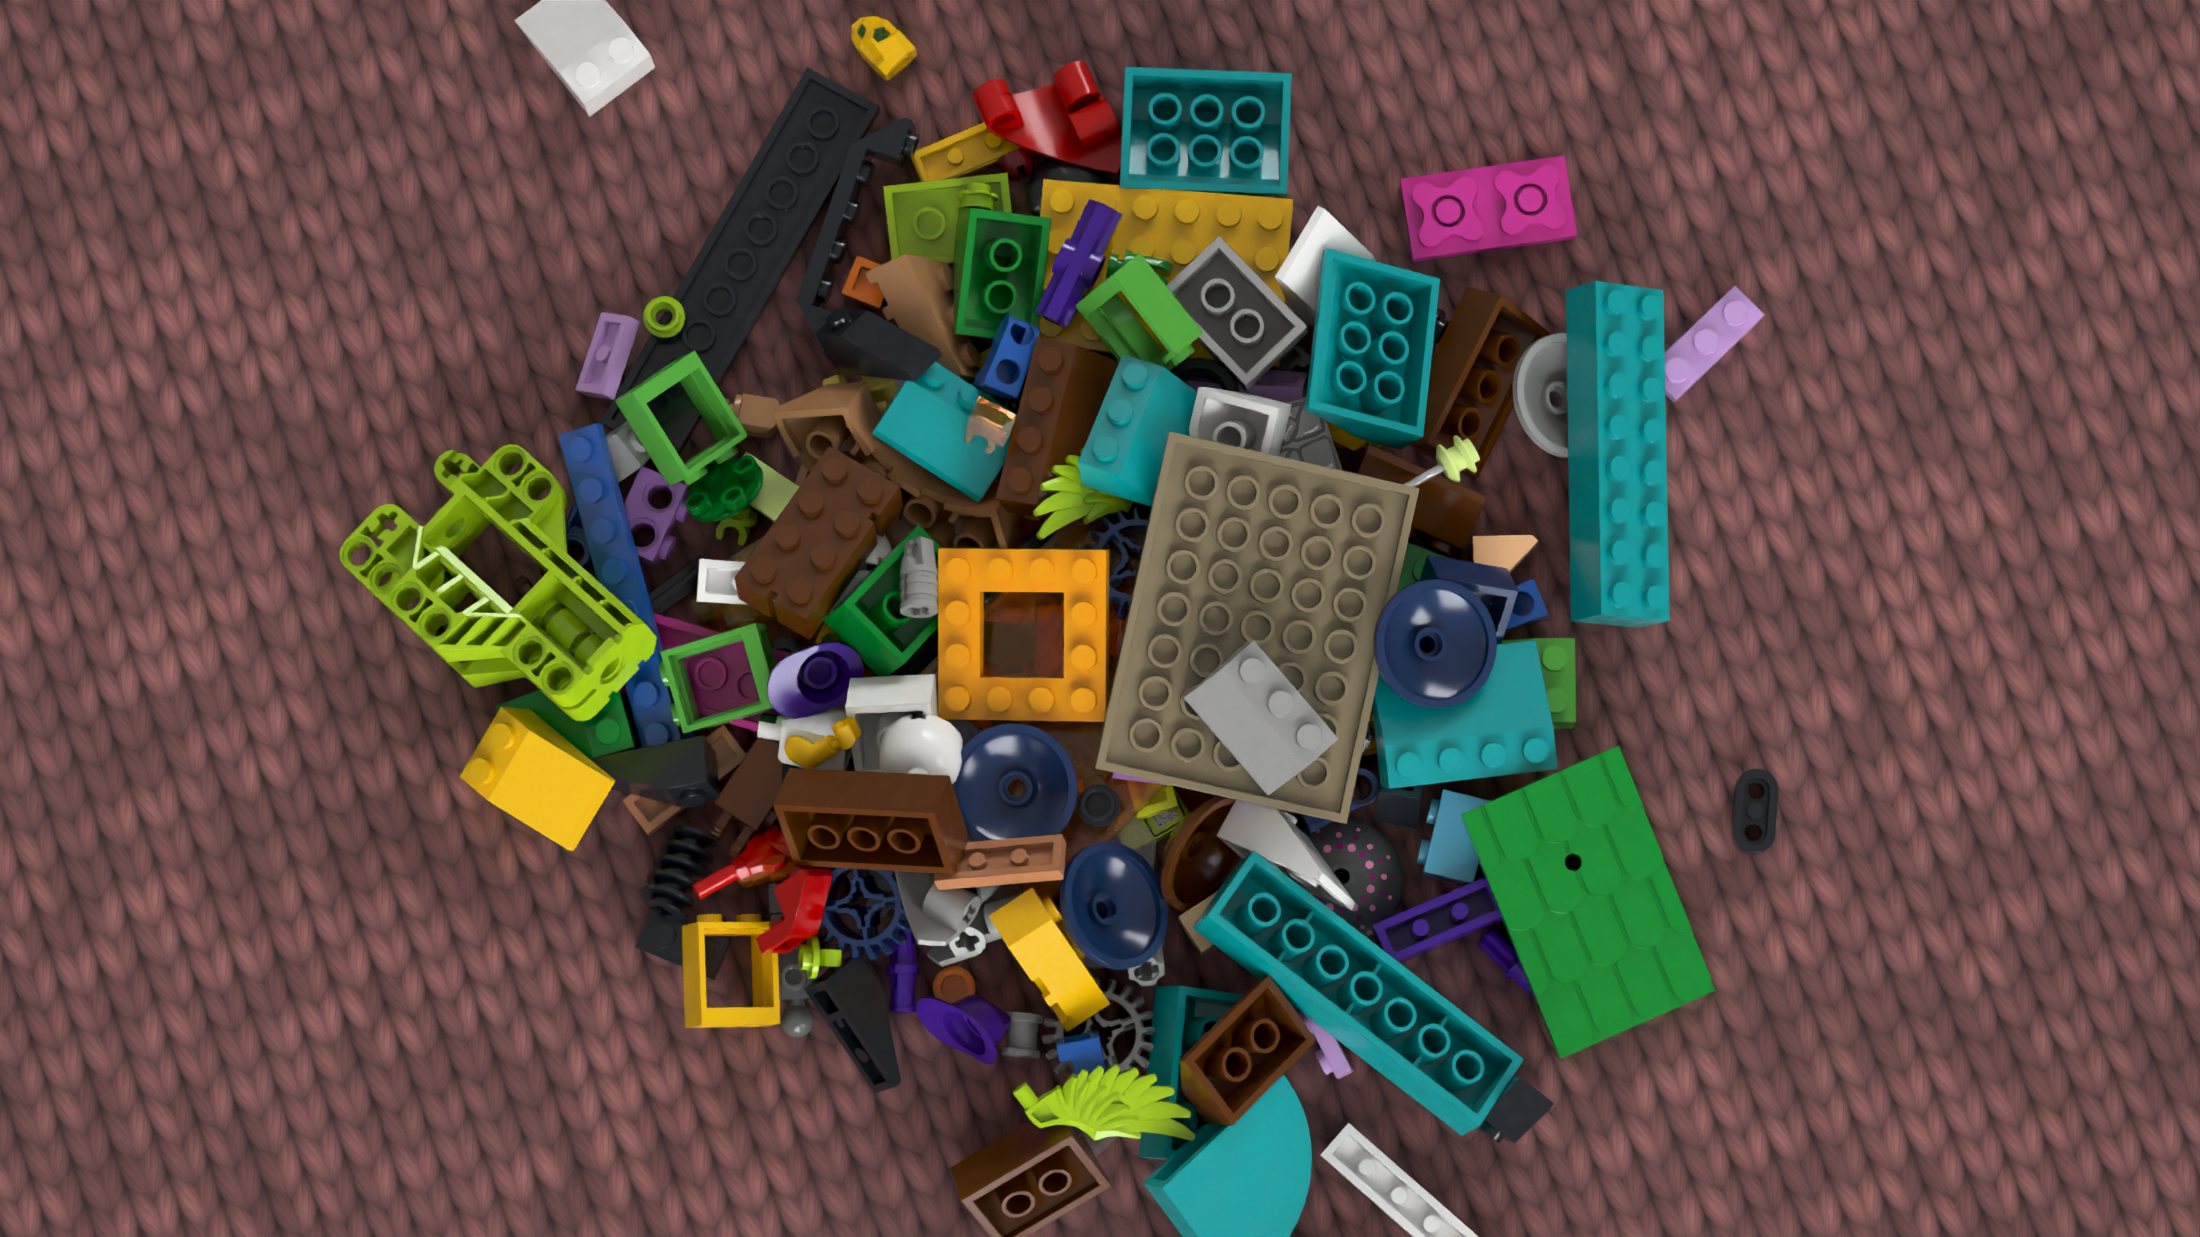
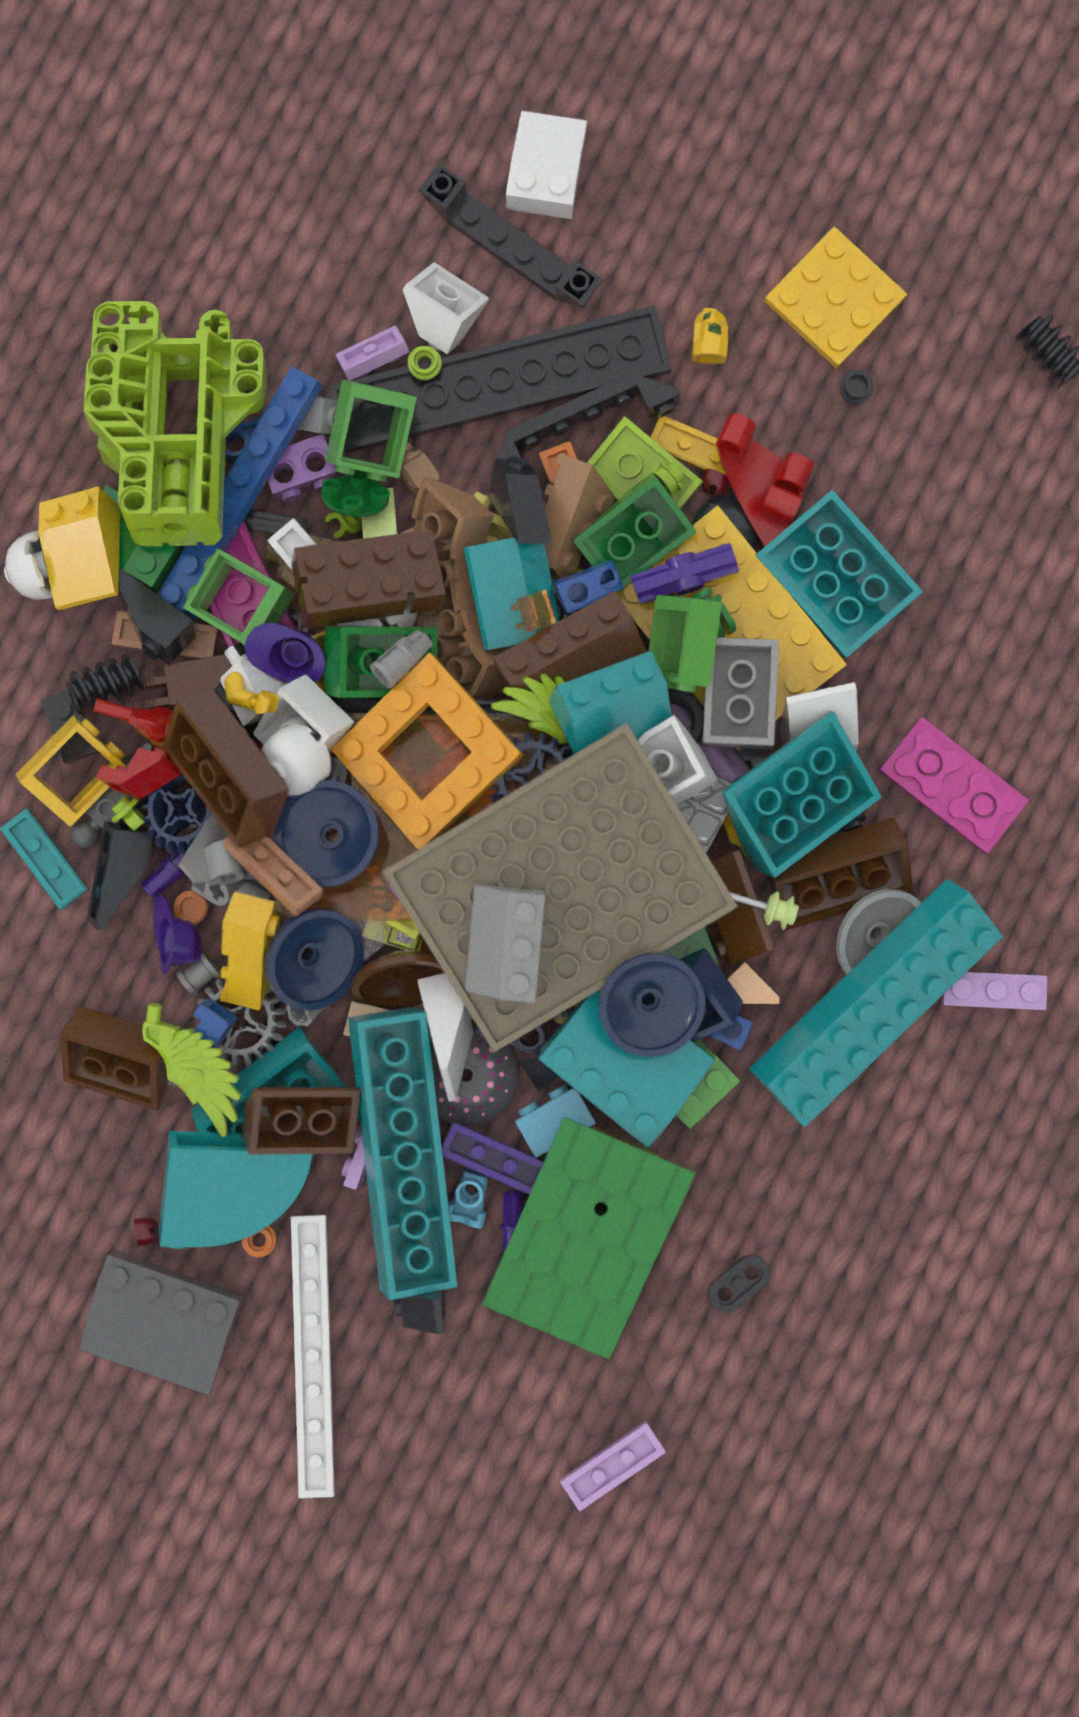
camera: 40 degrees right, 5 degrees up
(508, 842) = (27, 568): none -> white cylinder
(625, 143) = (507, 243): none -> black slope
(627, 254) = (443, 306): none -> white slope
(783, 1079) = (44, 859): none -> teal tile
(1099, 806) = (366, 894): black plate -> none
(1328, 1207) = (260, 1250): none -> orange plate
(1461, 987) = (467, 1205): none -> medium azure plate
(1813, 1075) = (612, 1466): none -> lavender plate

